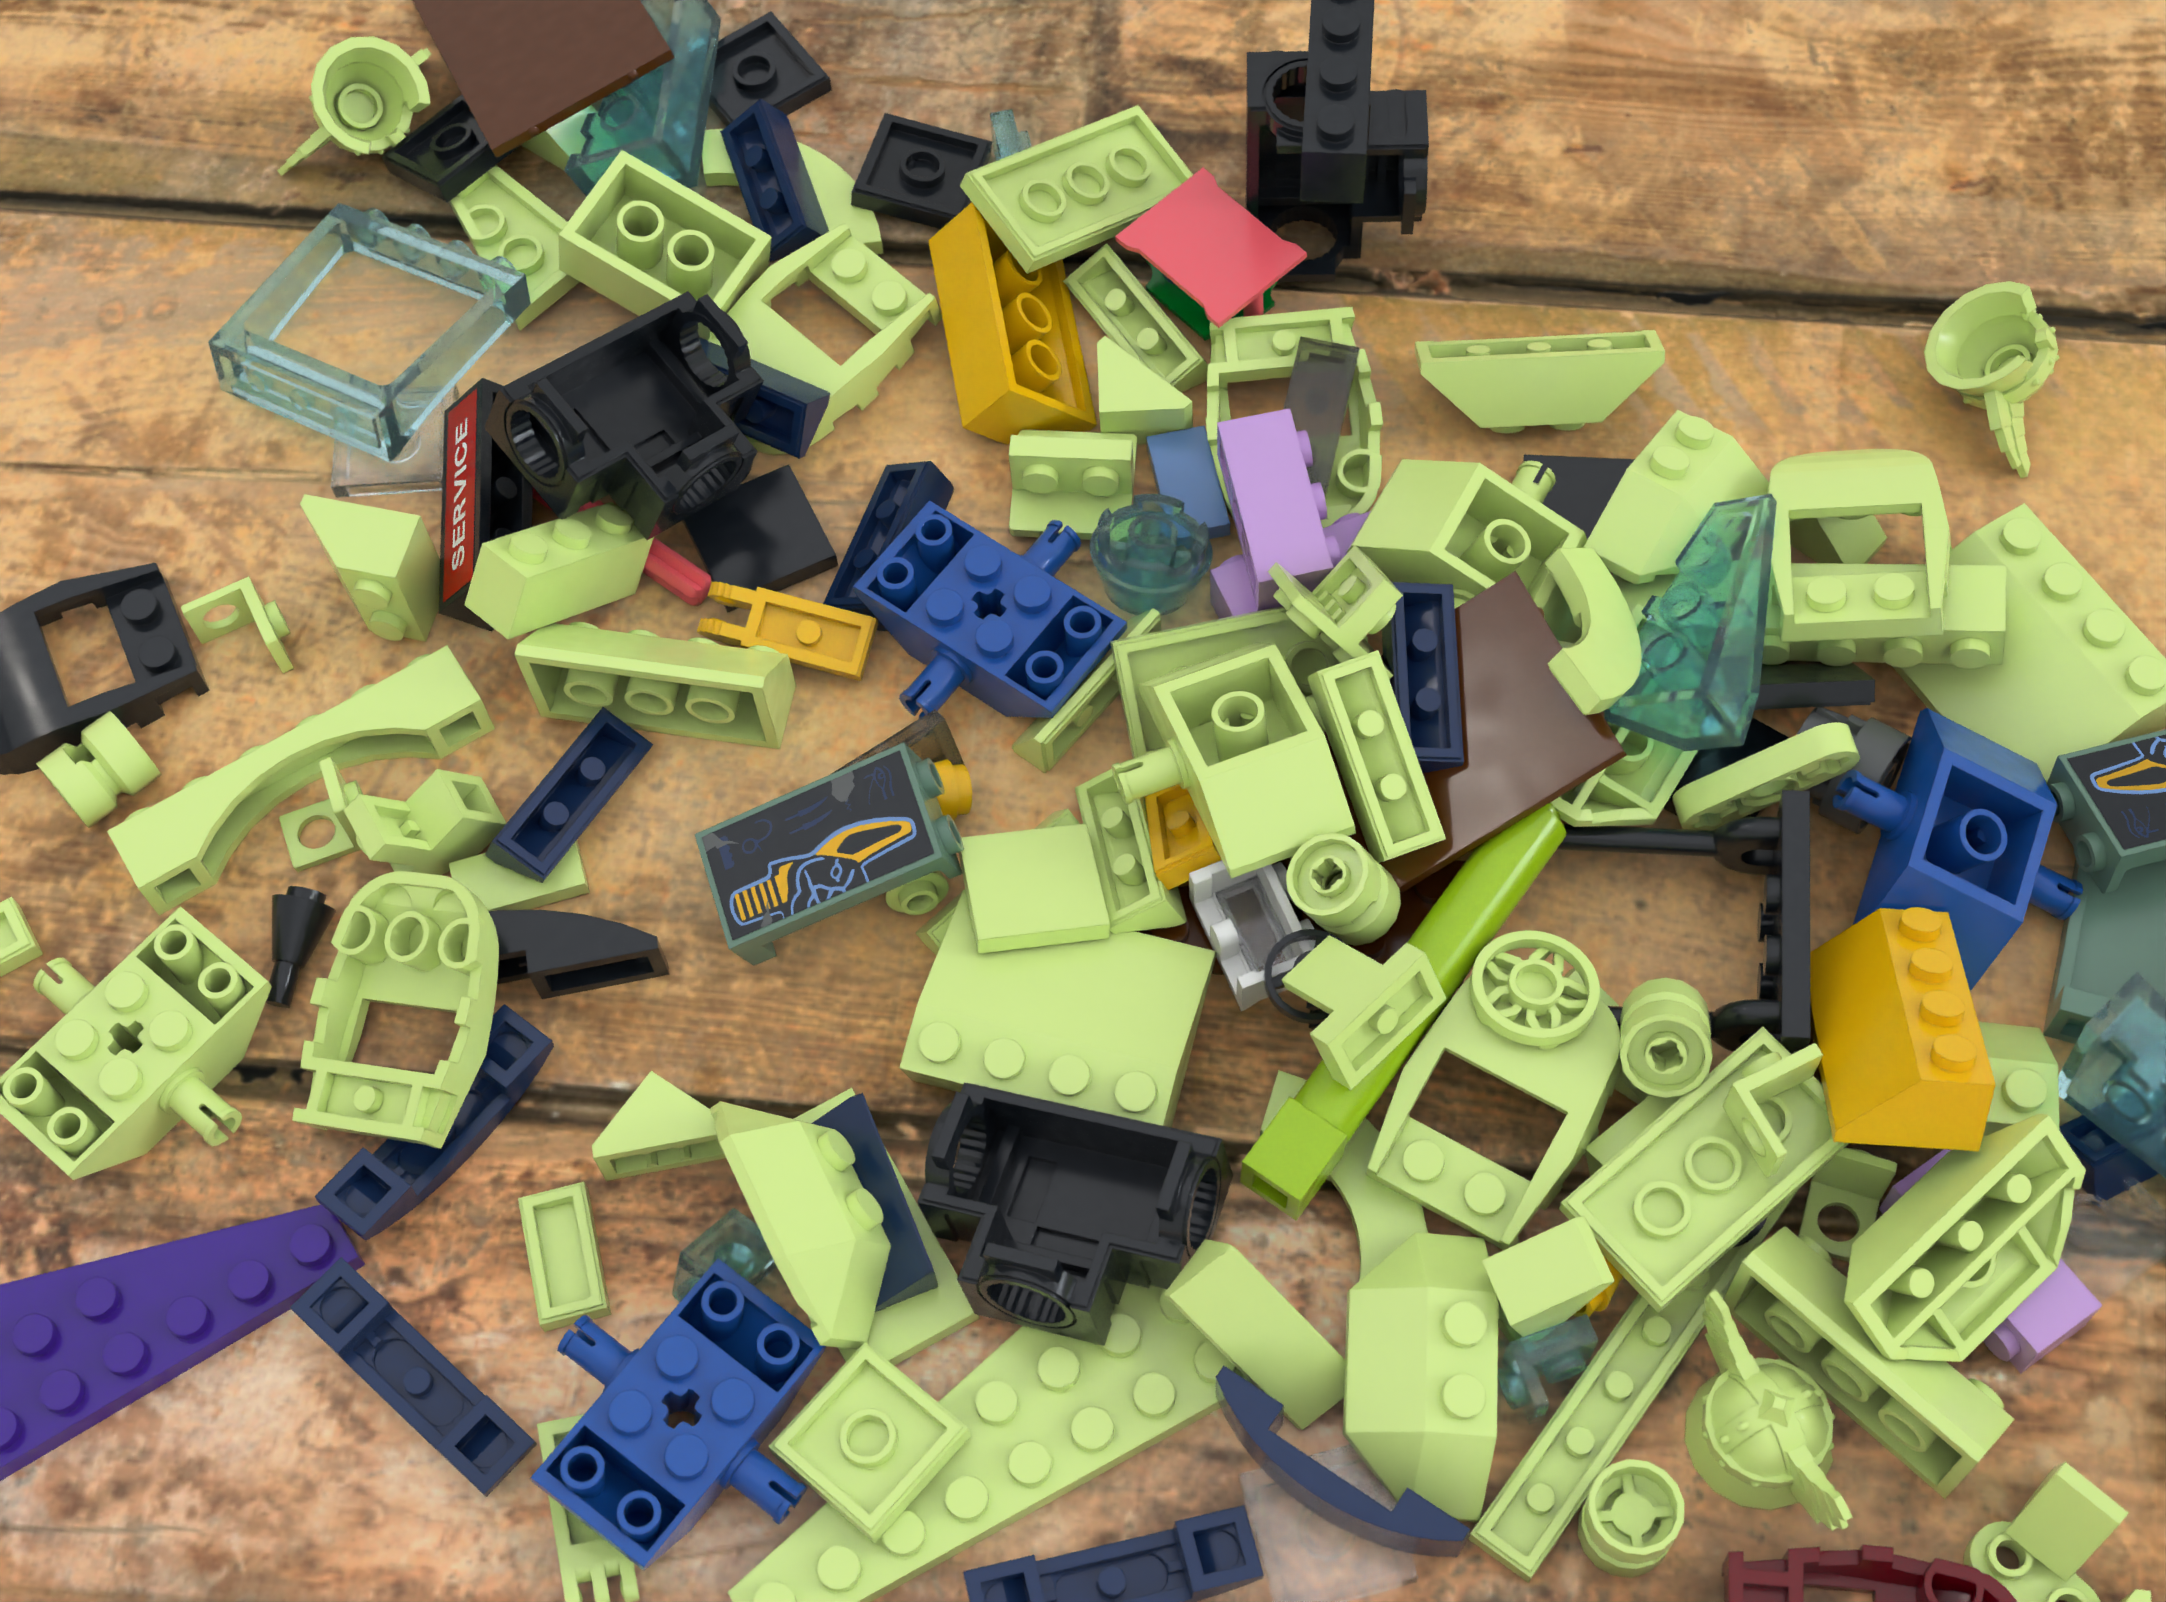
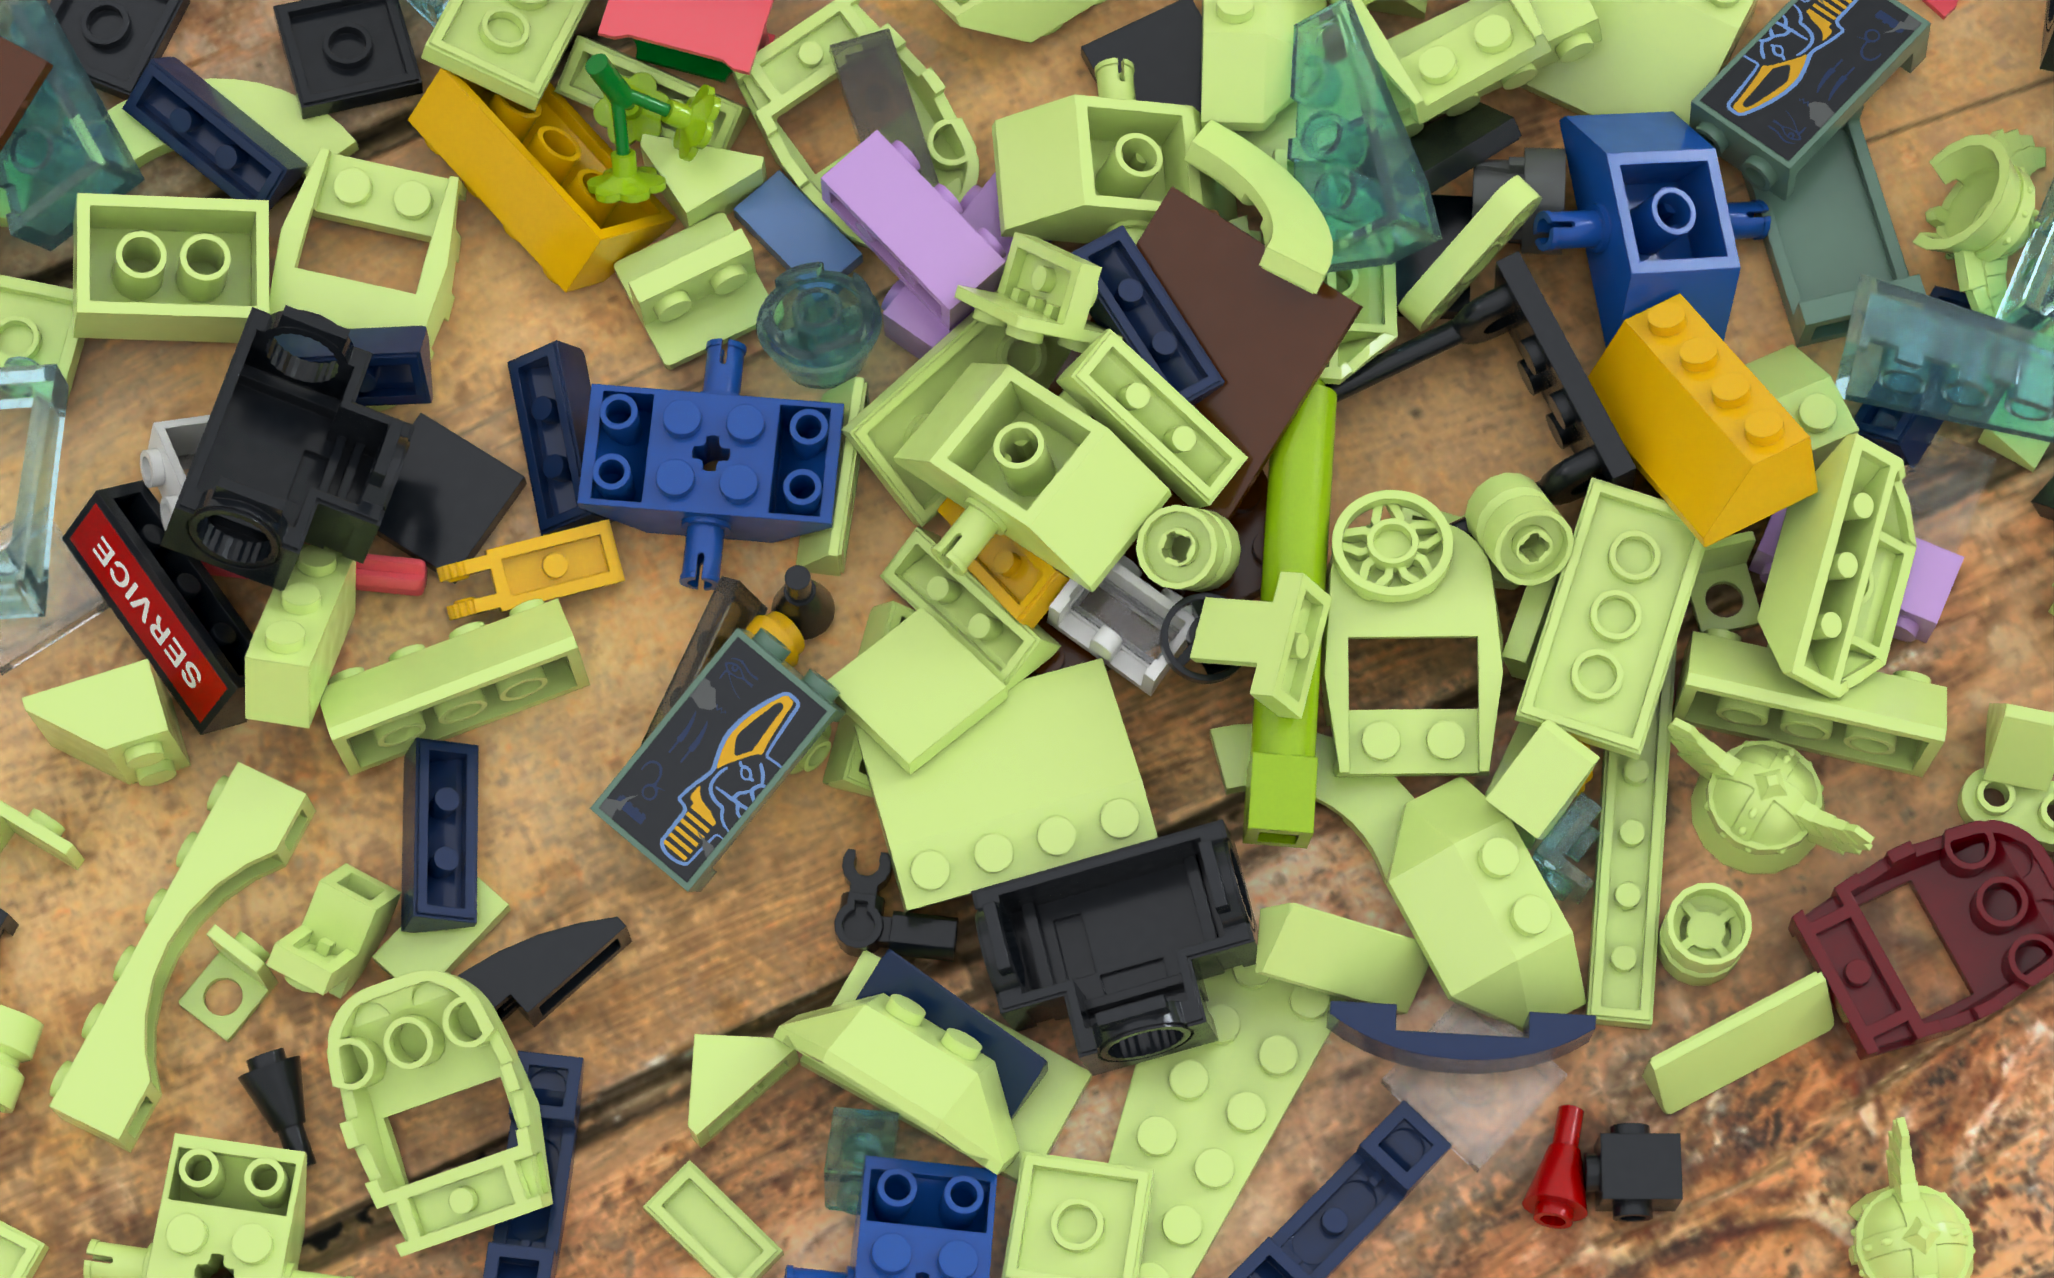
camera: 35 degrees left, 10 degrees up
(866, 1066) = (863, 927): none -> black bar
(992, 769) = (805, 602): none -> black cone
(1109, 315) = (638, 108): none -> lime plant
(1762, 1081) = (1623, 560): yellowish green bracket -> none

